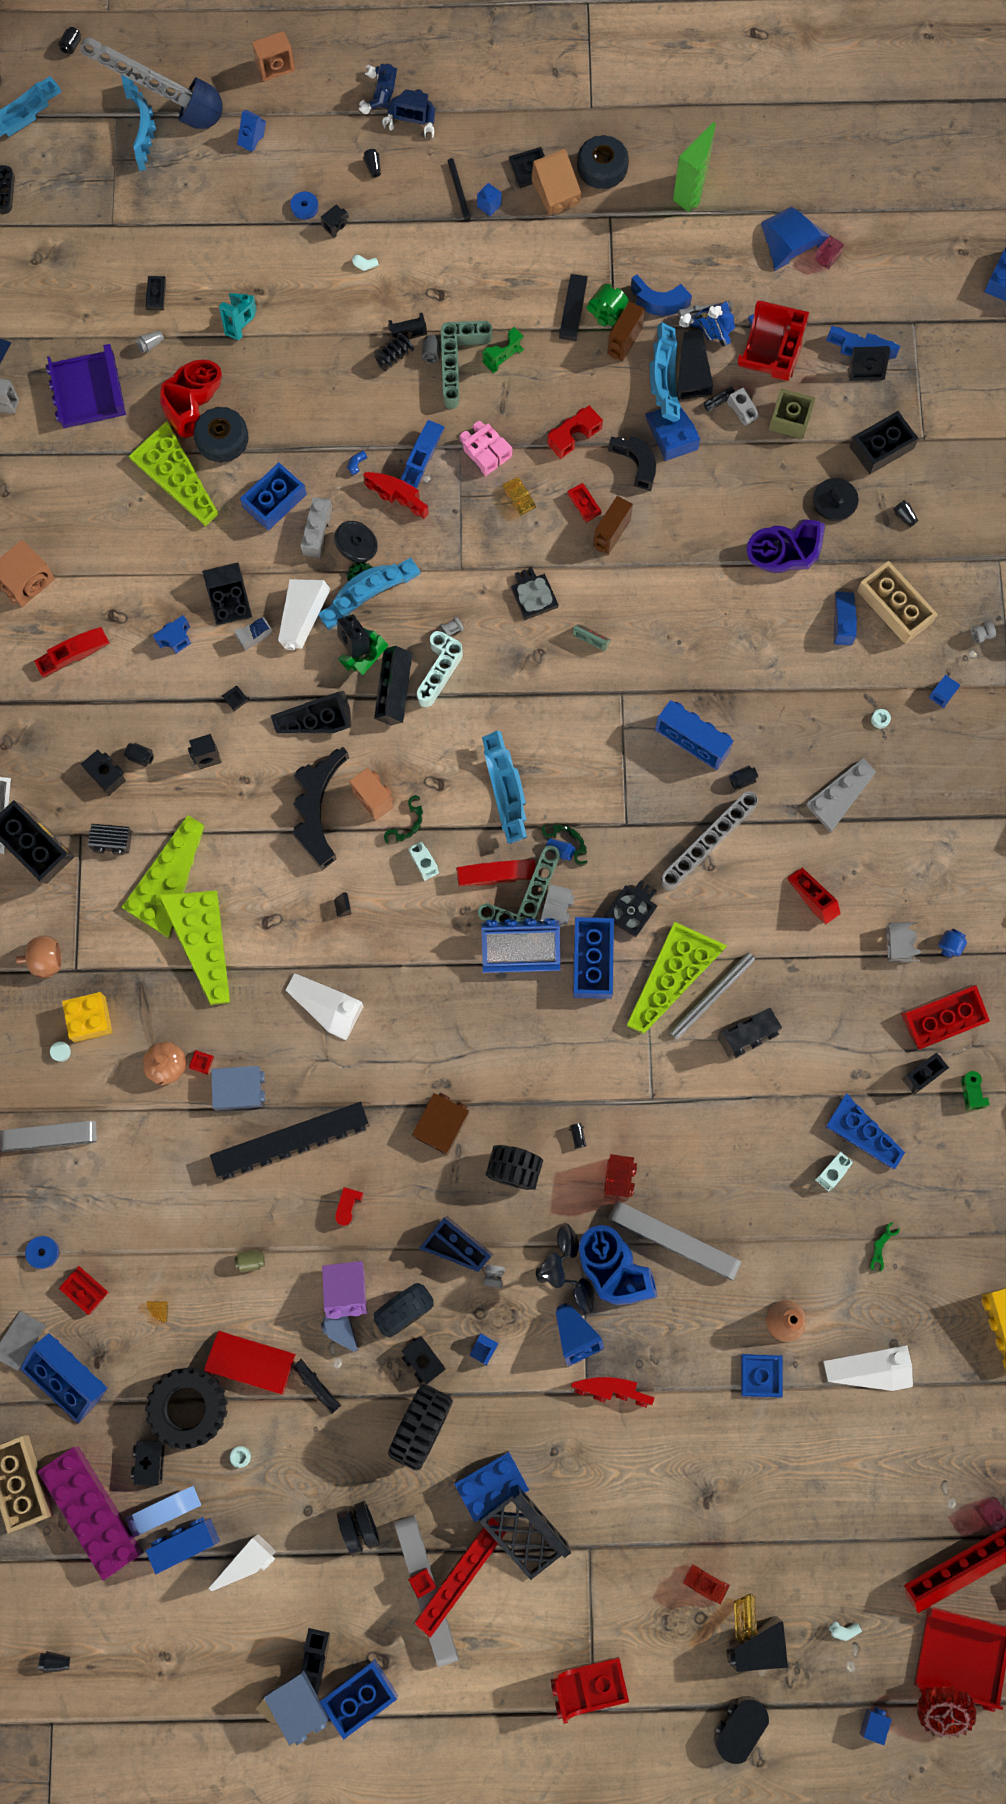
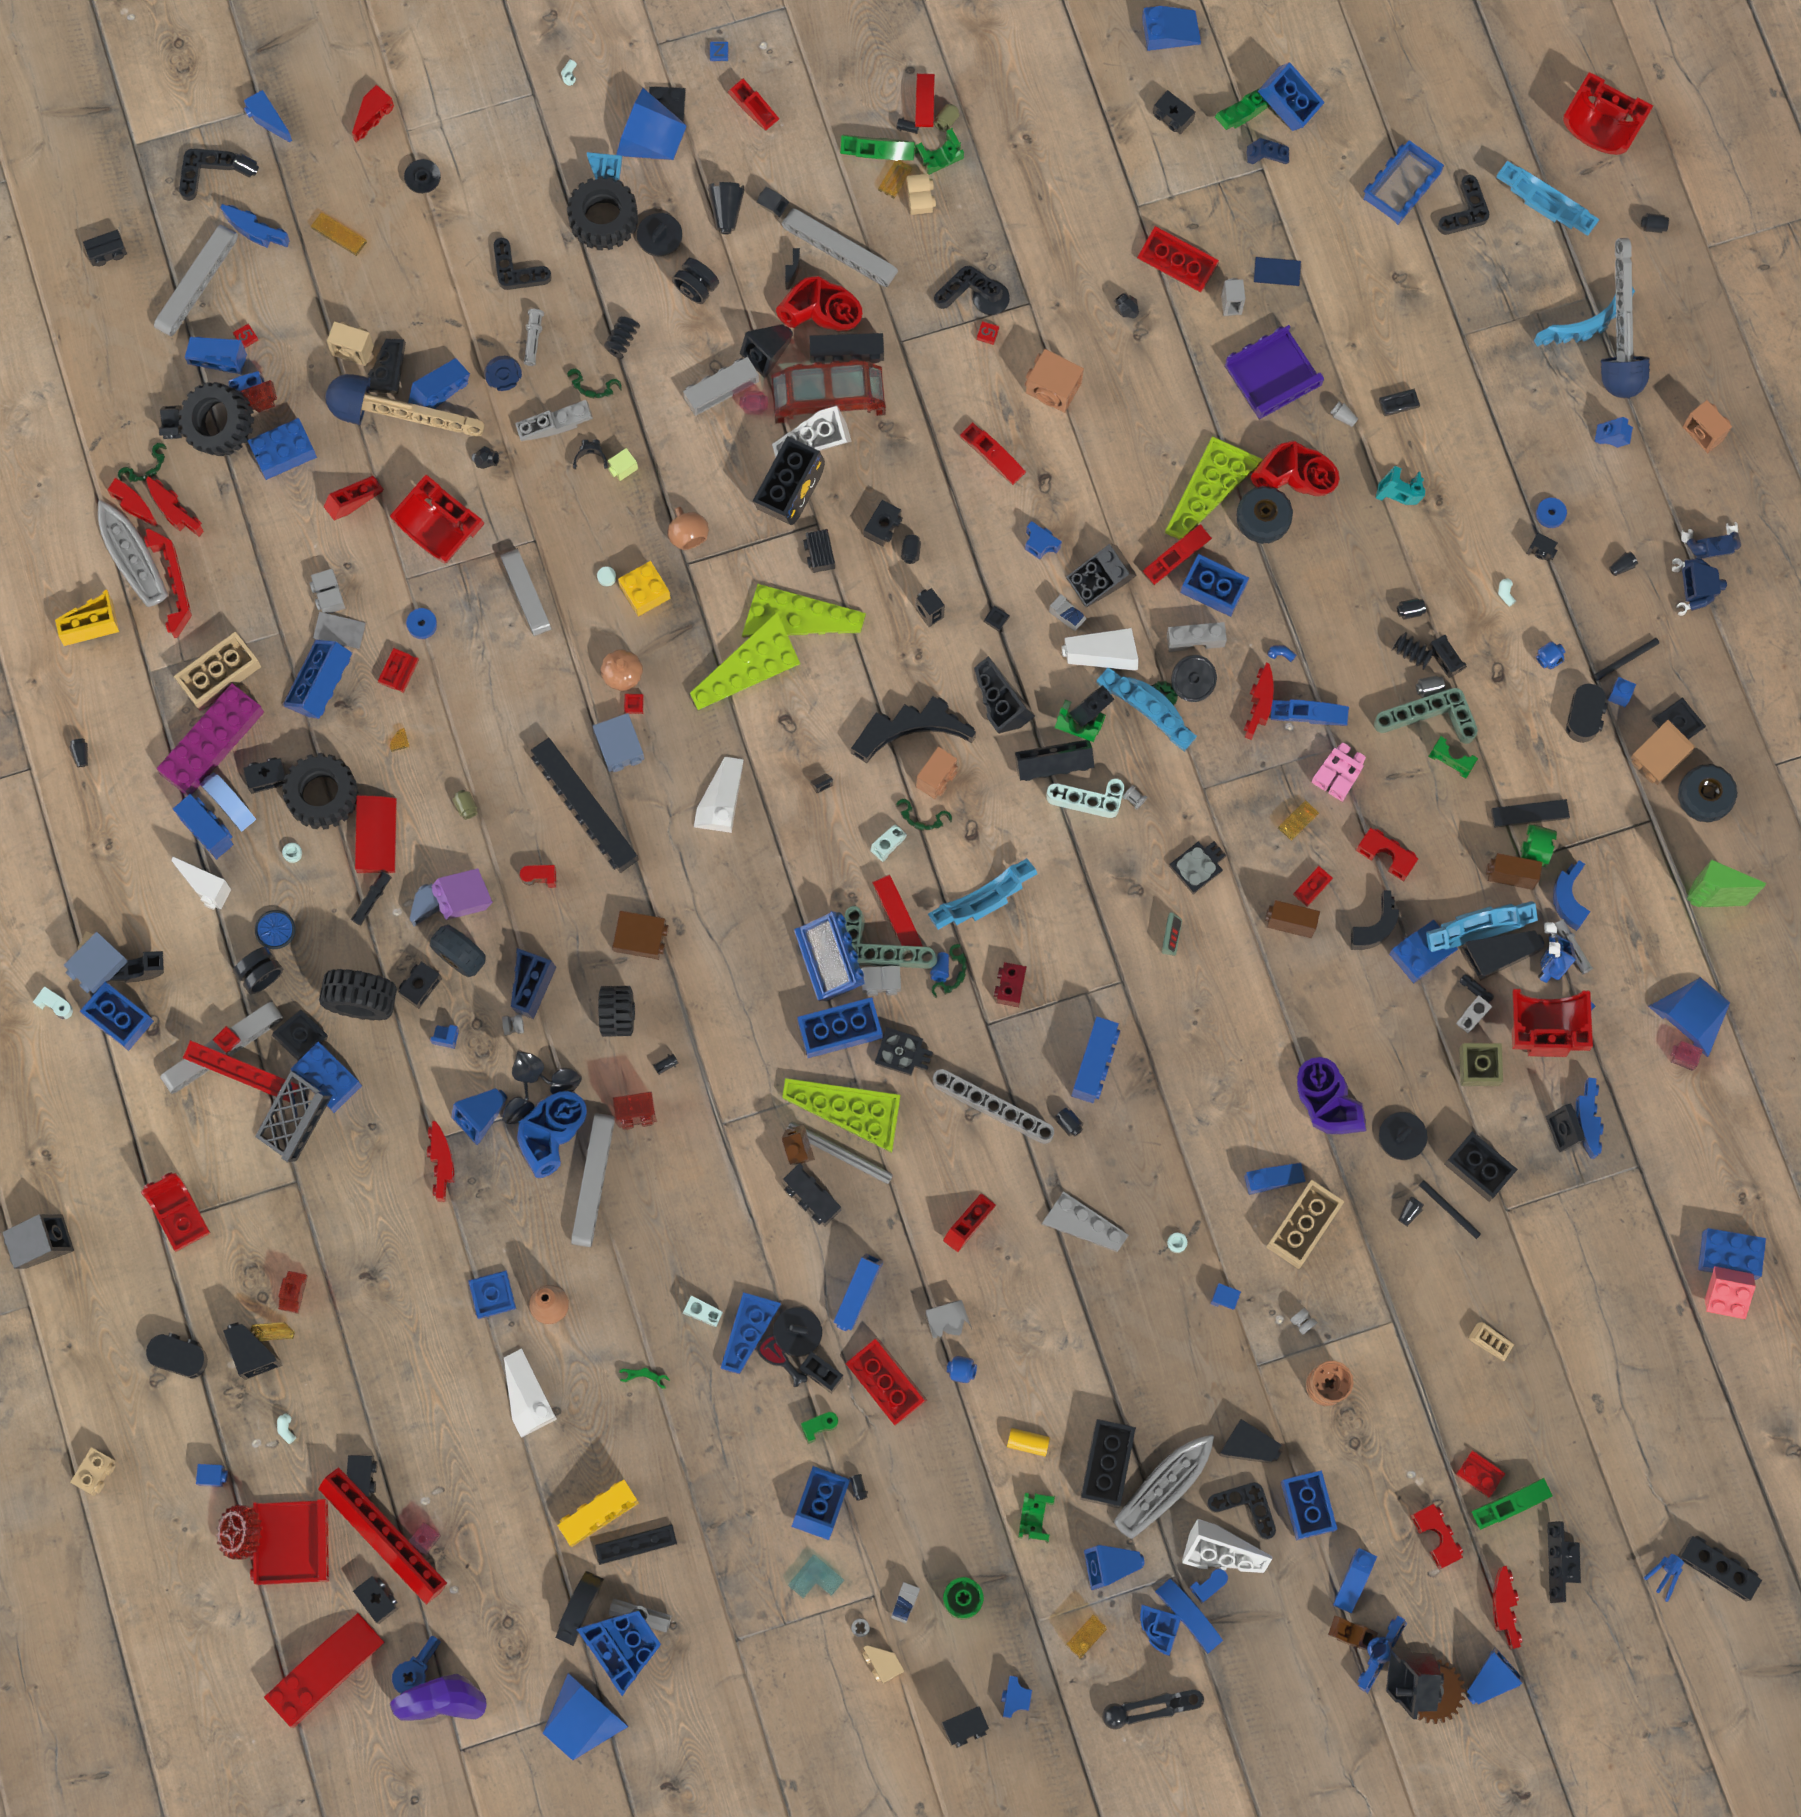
camera: 70 degrees right, 0 degrees up
(232, 520) = (1177, 554): none -> red slope
(316, 1498) = (275, 929): none -> blue wheel
(328, 1759) = (54, 1002): none -> light aqua leg
(353, 342) = (1411, 608): none -> black brick
(436, 244) = (1550, 655): none -> blue head
(439, 1502) = (299, 1035): none -> black hinge
(498, 233) = (1586, 713): none -> black brick
(596, 790) = (1011, 984): none -> dark red brick
(700, 1031) = (797, 1145): none -> reddish brown torso
(854, 1015) = (858, 1292): none -> blue slope
(877, 1085) = (797, 1332): none -> black shield
(889, 1115) = (775, 1356): none -> black piece
(912, 1563) = (361, 1471): none -> black slope
(923, 476) = (1449, 1209): none -> black bar

